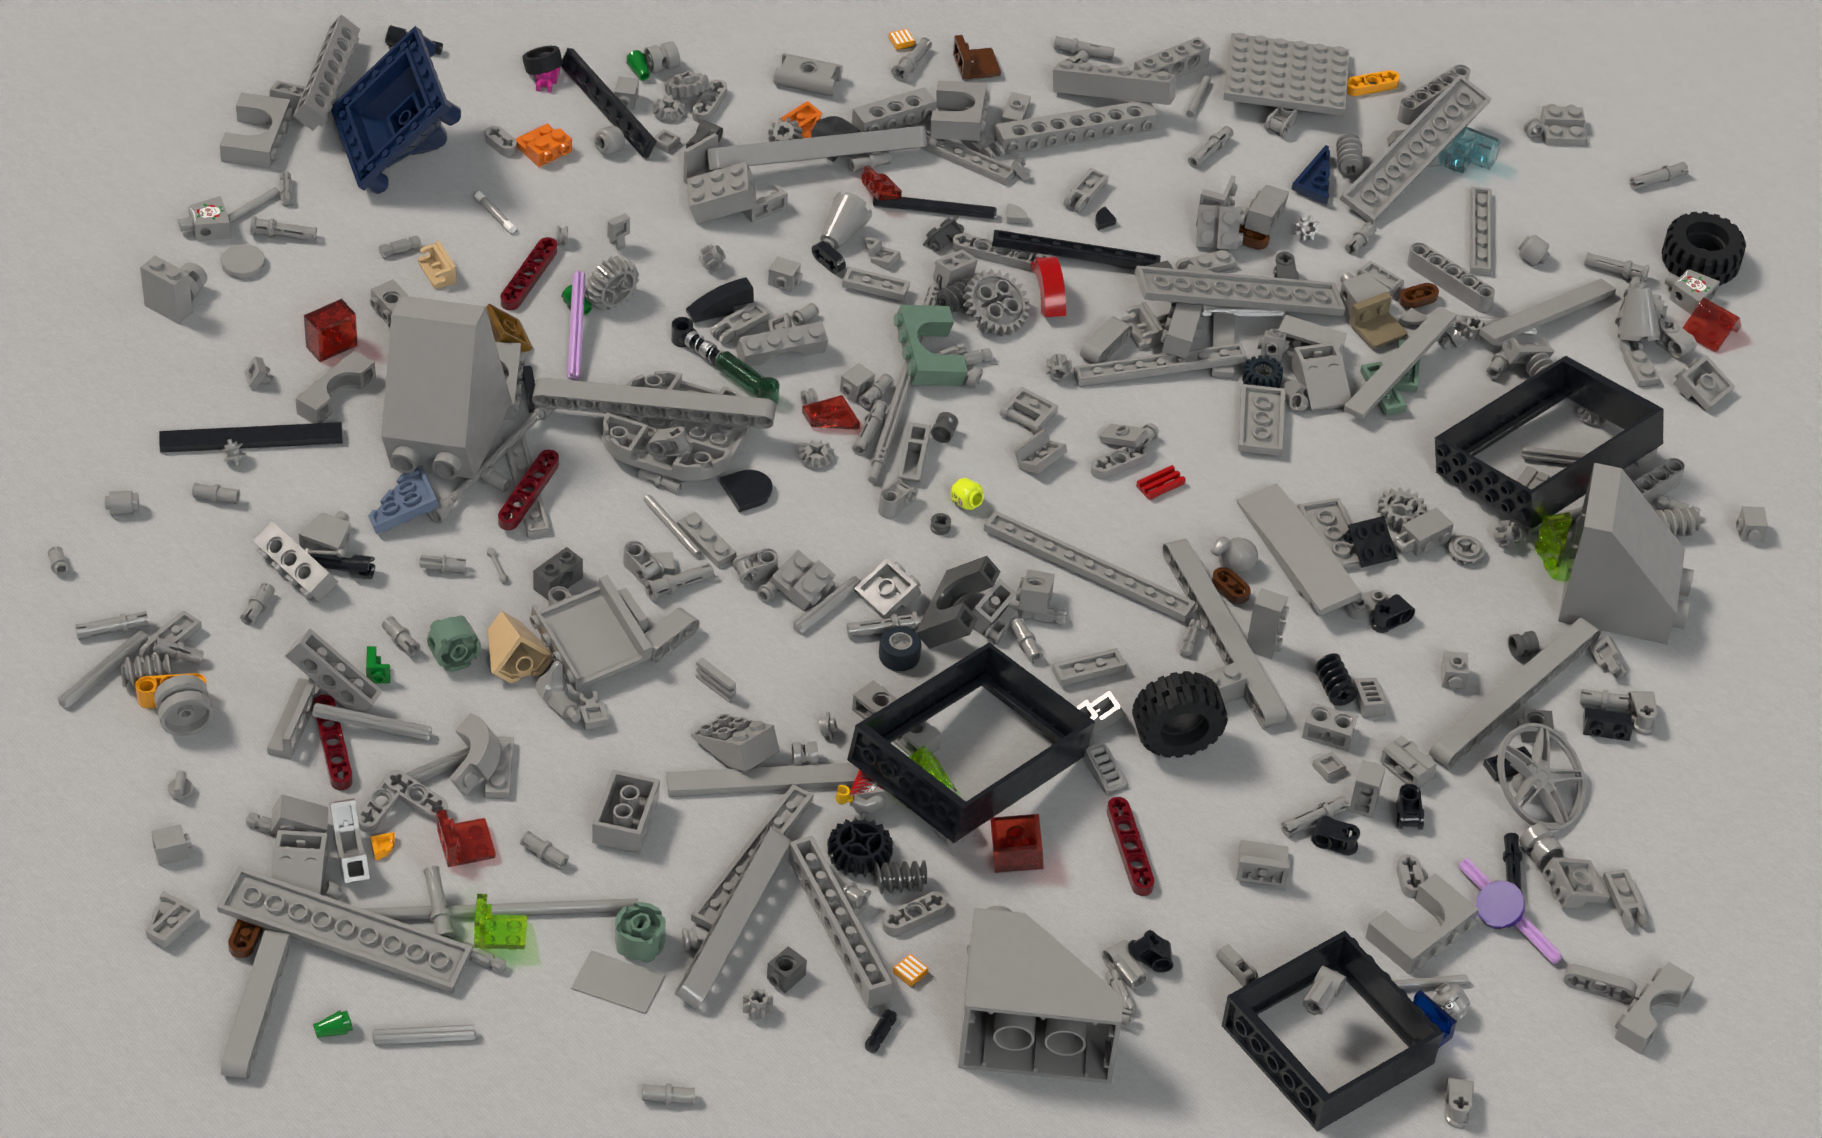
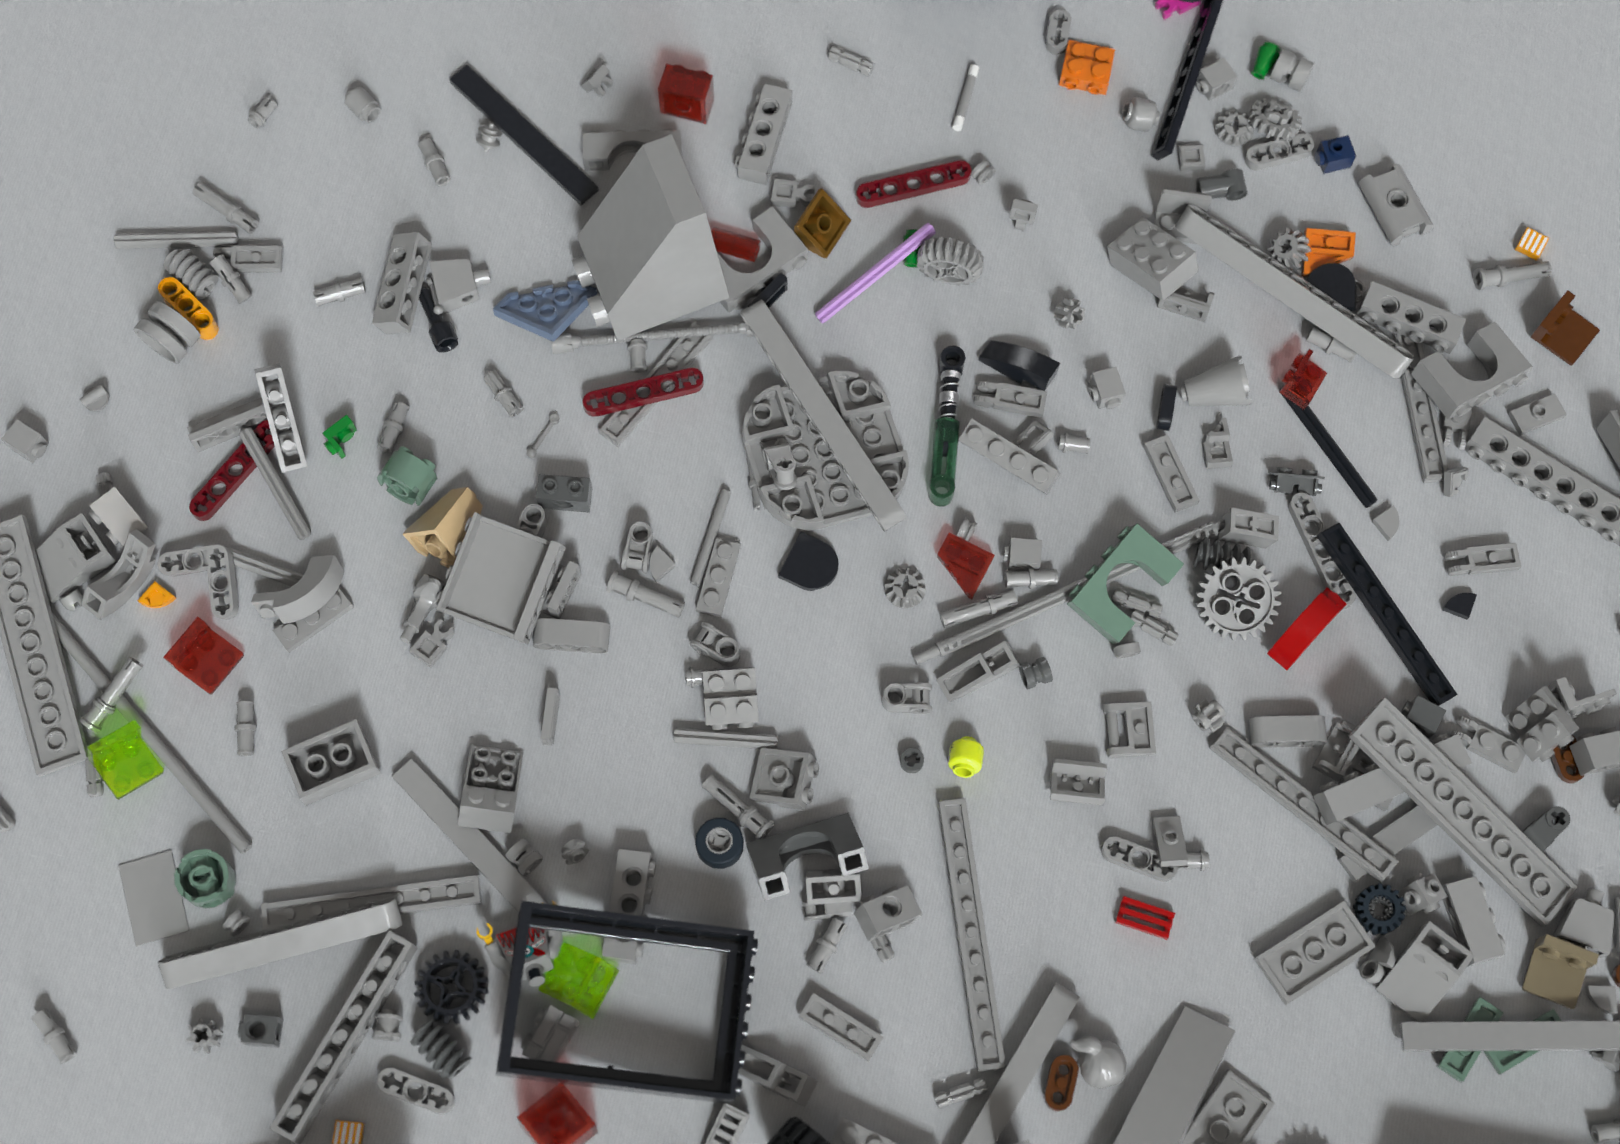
camera: 55 degrees right, 25 degrees up
(437, 265) = (852, 108): tan hinge -> none
(742, 76) = (1335, 154): none -> dark blue brick

